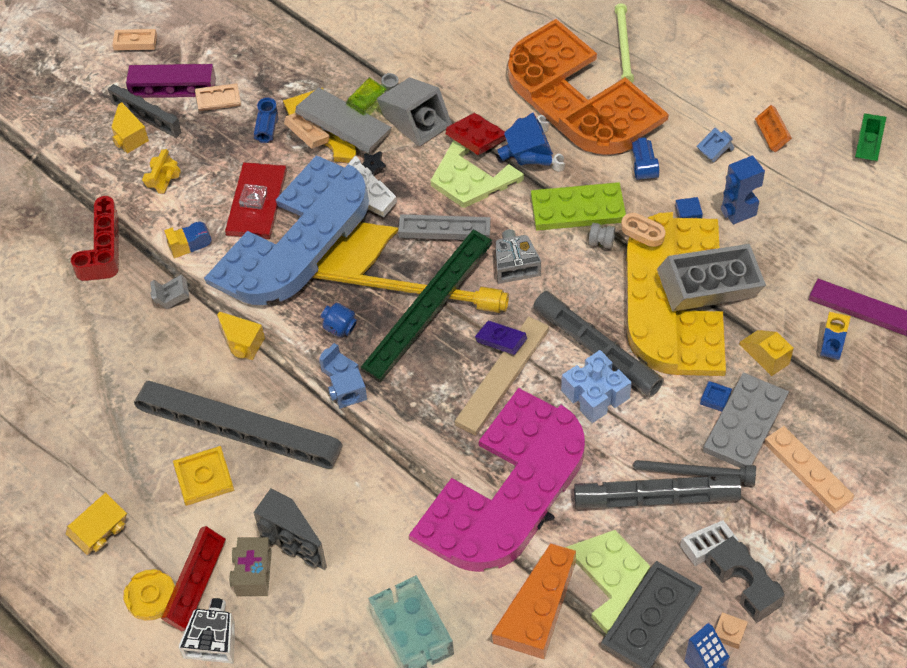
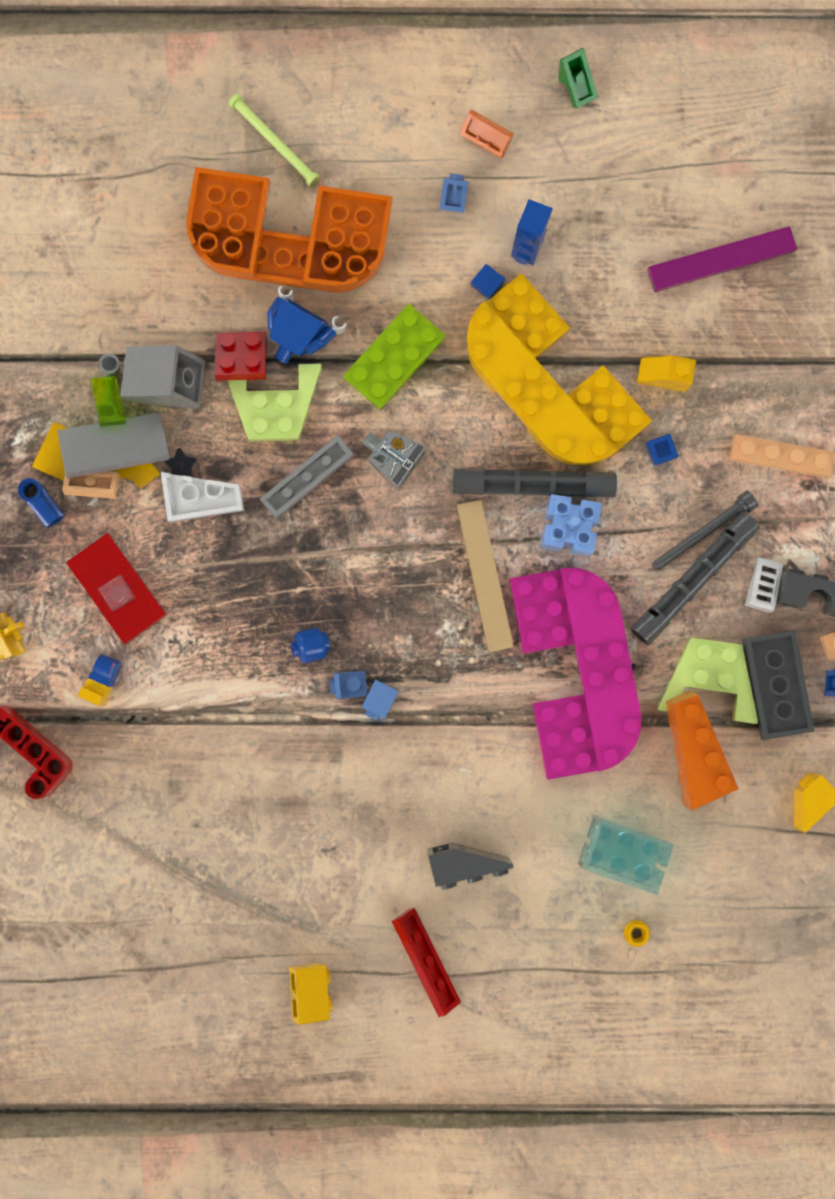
camera: 50 degrees left, 30 degrees up
(148, 594) = (403, 1001): yellow tile -> none
(170, 292) = (142, 744): light grey bracket -> none
(203, 475) = (341, 872): yellow tile -> none
(210, 634) = (484, 991): torso -> none
(239, 424) = (324, 809): dark grey beam -> none
(241, 335) = (245, 732): yellow slope -> none
(252, 566) = (460, 914): dark tan brick -> none
(330, 205) = (197, 539): medium blue plate -> none
(357, 252) = (253, 567): yellow flag -> none
(426, 305) = (369, 567): dark green tile -> none
(501, 337) = (455, 545): dark purple plate -> none
(604, 235) = (444, 373): light grey wheel -> none
(645, 163) = (414, 266): blue piece -> none
(645, 230) = (483, 343): light nougat plate -> none
(710, 277) = (579, 347): light grey brick -> none
(745, 421) = (703, 453): light grey plate -> none
(834, 335) = (708, 315): blue leg -> none

